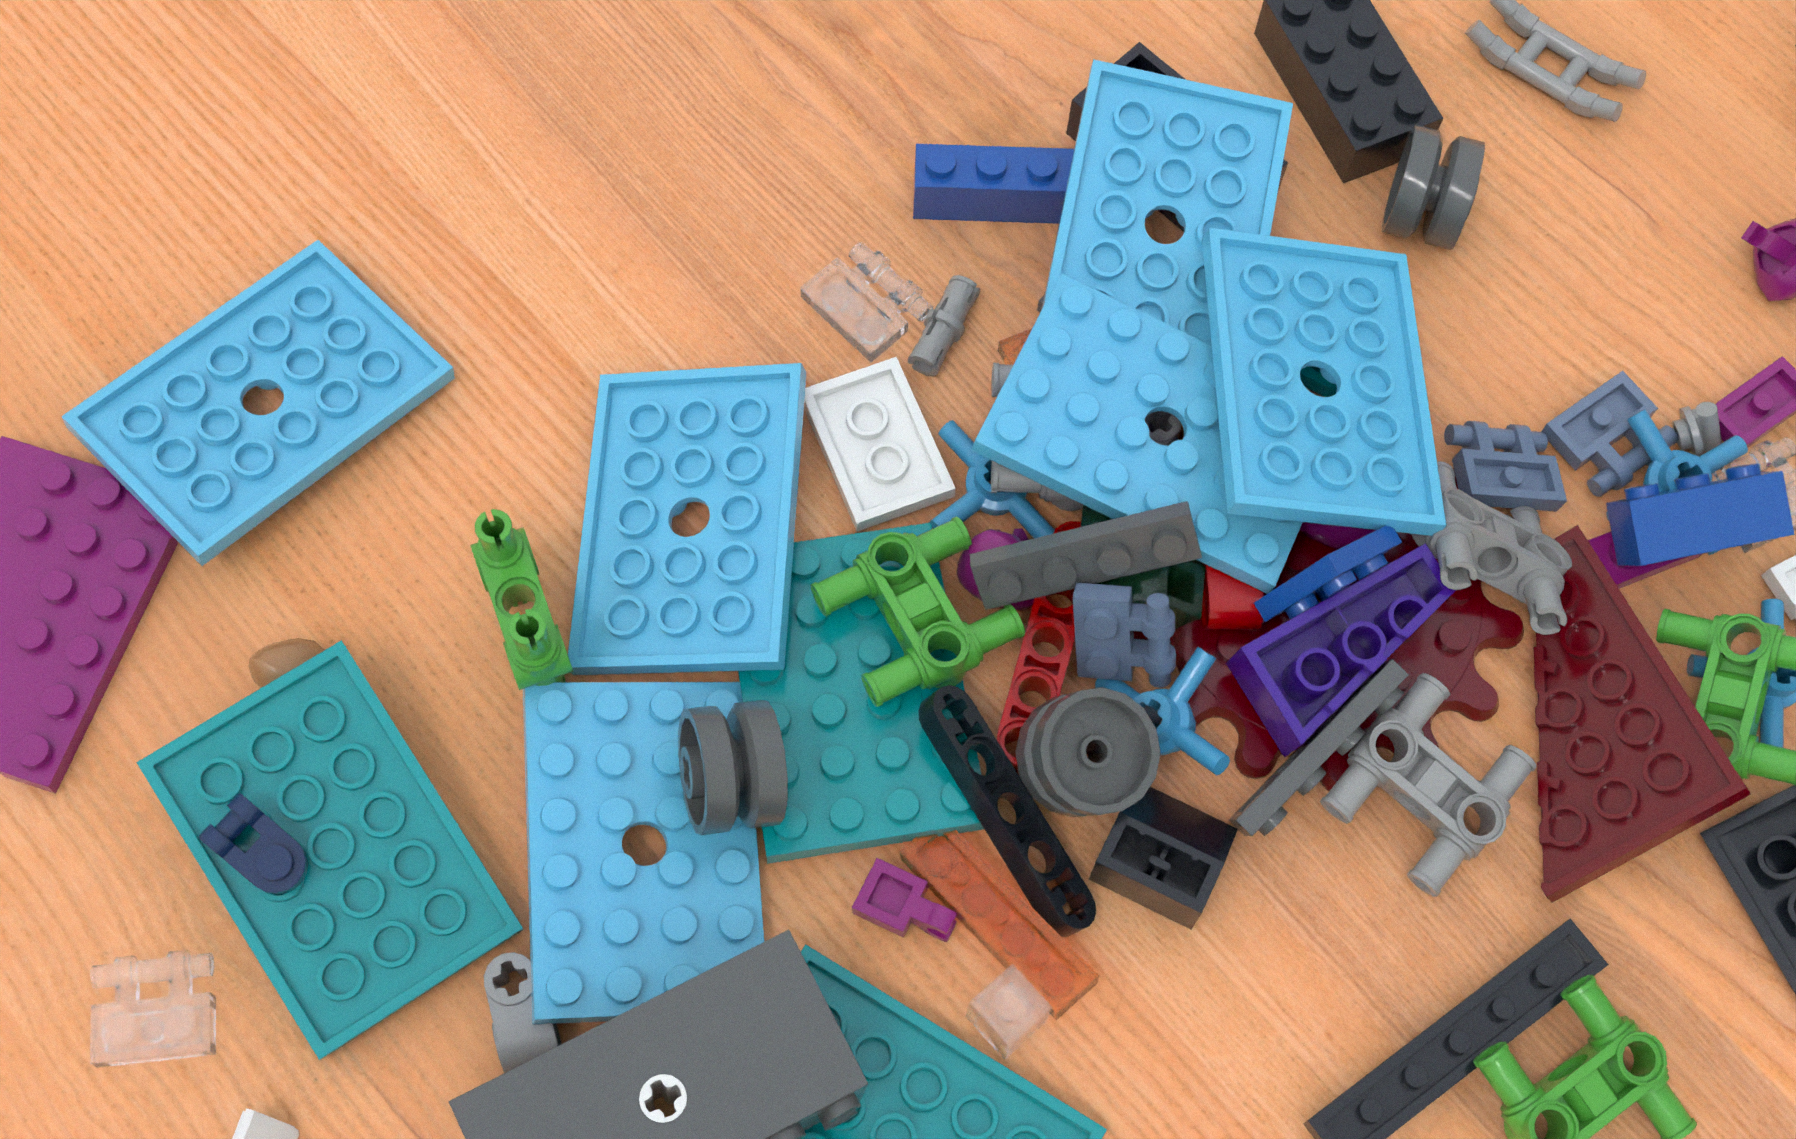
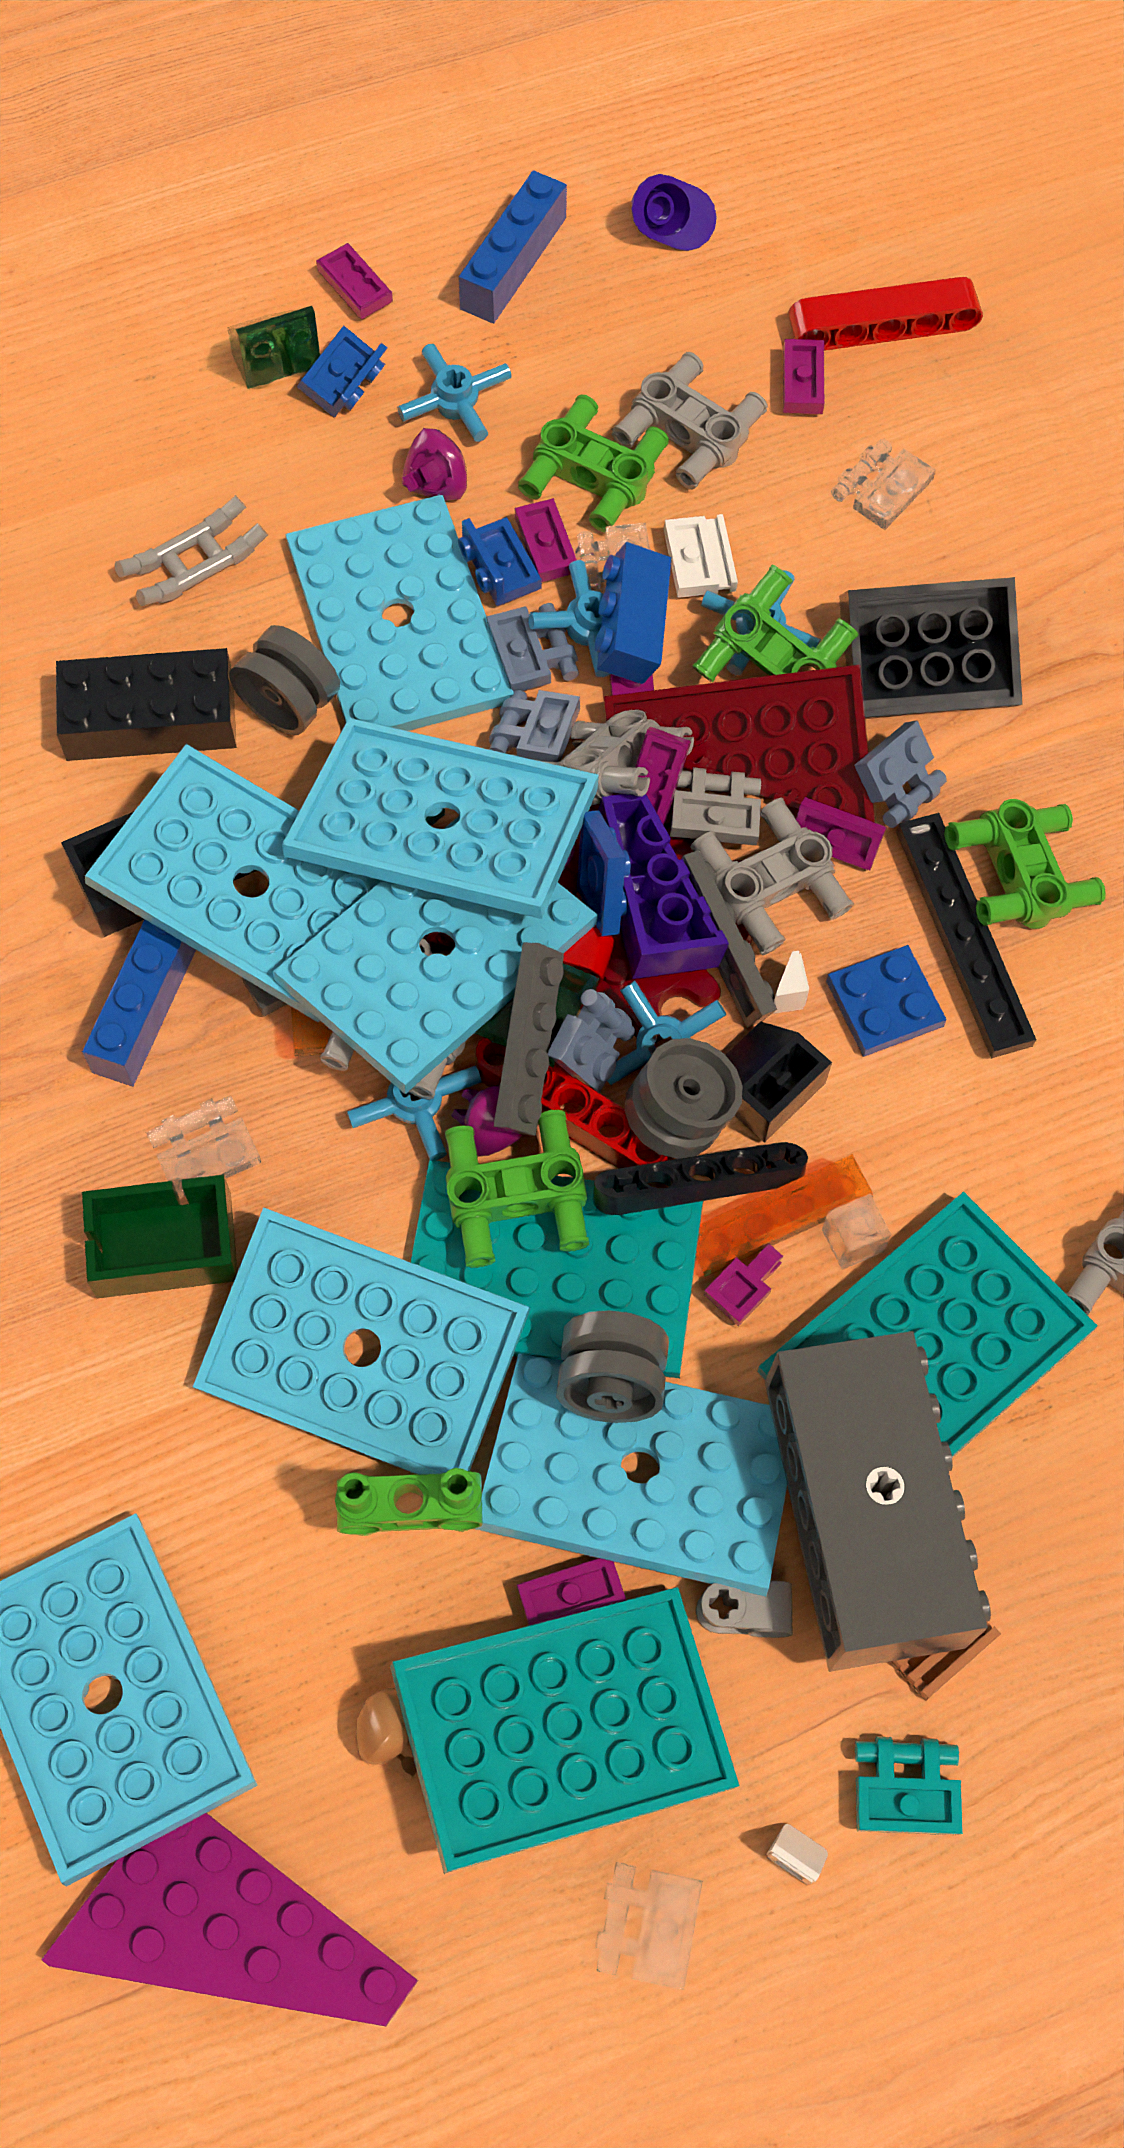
camera: 70 degrees left, 0 degrees up
(272, 863) = (569, 1772): dark blue plate -> none
(485, 818) = (571, 1591): none -> magenta plate
(747, 286) = (156, 1241): none -> dark green piece
(877, 444) = (343, 1178): white plate -> none
(944, 325) = (251, 1092): light grey pin -> none
(1295, 849) = (793, 986): none -> white slope
(1328, 972) = (886, 1000): none -> blue plate
(1478, 697) = (730, 816): none -> light grey plate
(1494, 605) = (664, 759): none -> magenta plate
(1525, 852) = (850, 836): none -> magenta plate
(1537, 344) = (412, 673): none -> medium azure plate
(1646, 885) = (895, 762): none -> sand blue plate
(1698, 428) = (551, 588): light grey plate -> none
(1706, 361) = (499, 560): none -> blue bracket

